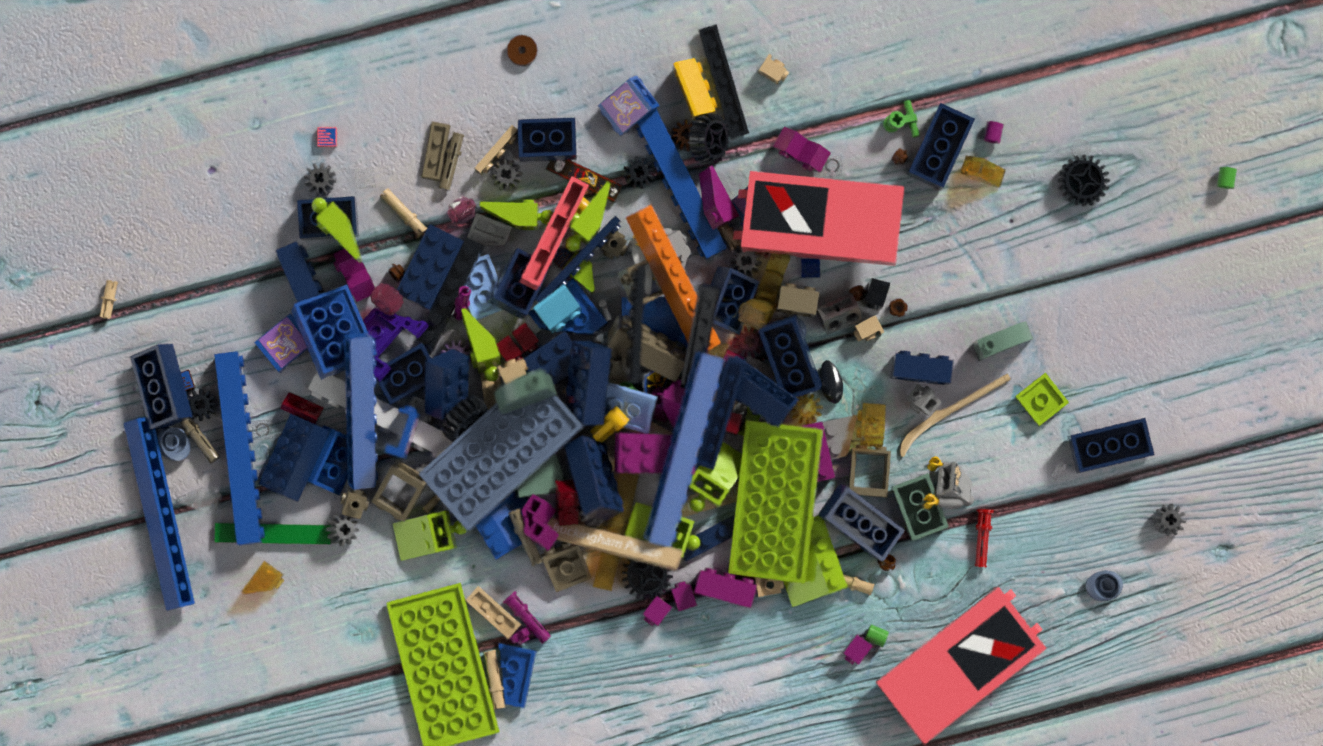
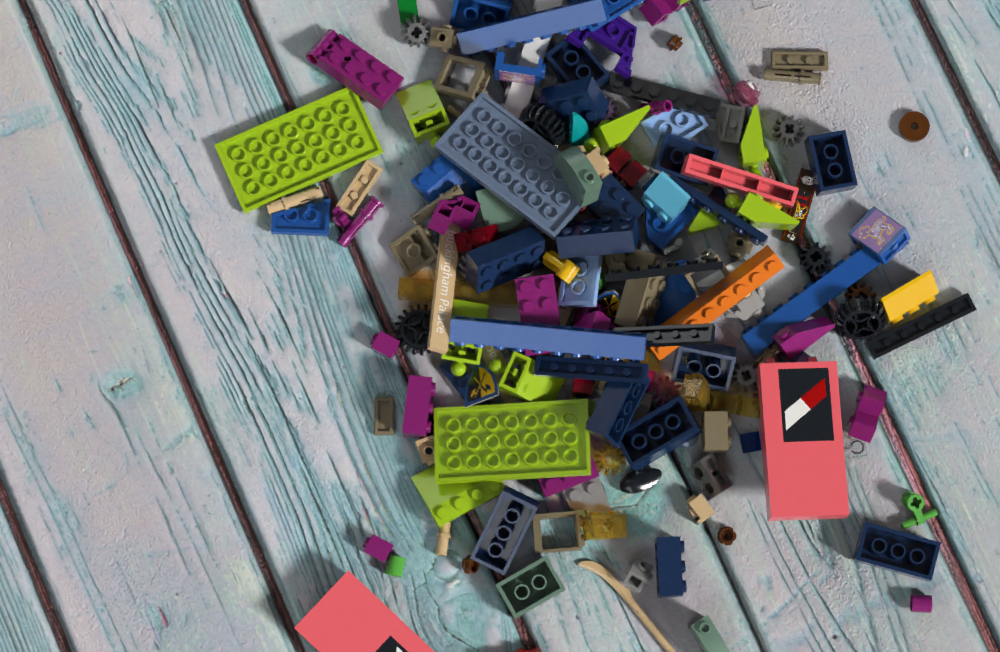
camera: 85 degrees right, 5 degrees down
(377, 591) = (355, 68): none -> magenta hinge
(386, 299) = (646, 34): clear pink gear -> none
(408, 217) = (729, 45): tan pin -> none
(429, 267) = (684, 70): dark blue brick -> none
(476, 384) = (578, 130): none -> teal piece
(497, 150) = (810, 117): tan plate -> none
(684, 596) = (403, 368): magenta brick -> none
(715, 523) = (481, 386): none -> shield
(726, 623) = (384, 416): none -> dark tan tile
(773, 70) = (941, 373): tan brick -> none
(858, 292) = (734, 492): reddish brown plate -> none
(876, 294) = (736, 510): black slope -> none
(899, 157) = (878, 513): reddish brown plate -> none
(952, 487) = (556, 617): light grey torso -> none
(982, 171) = (879, 599): clear yellow slope -> none

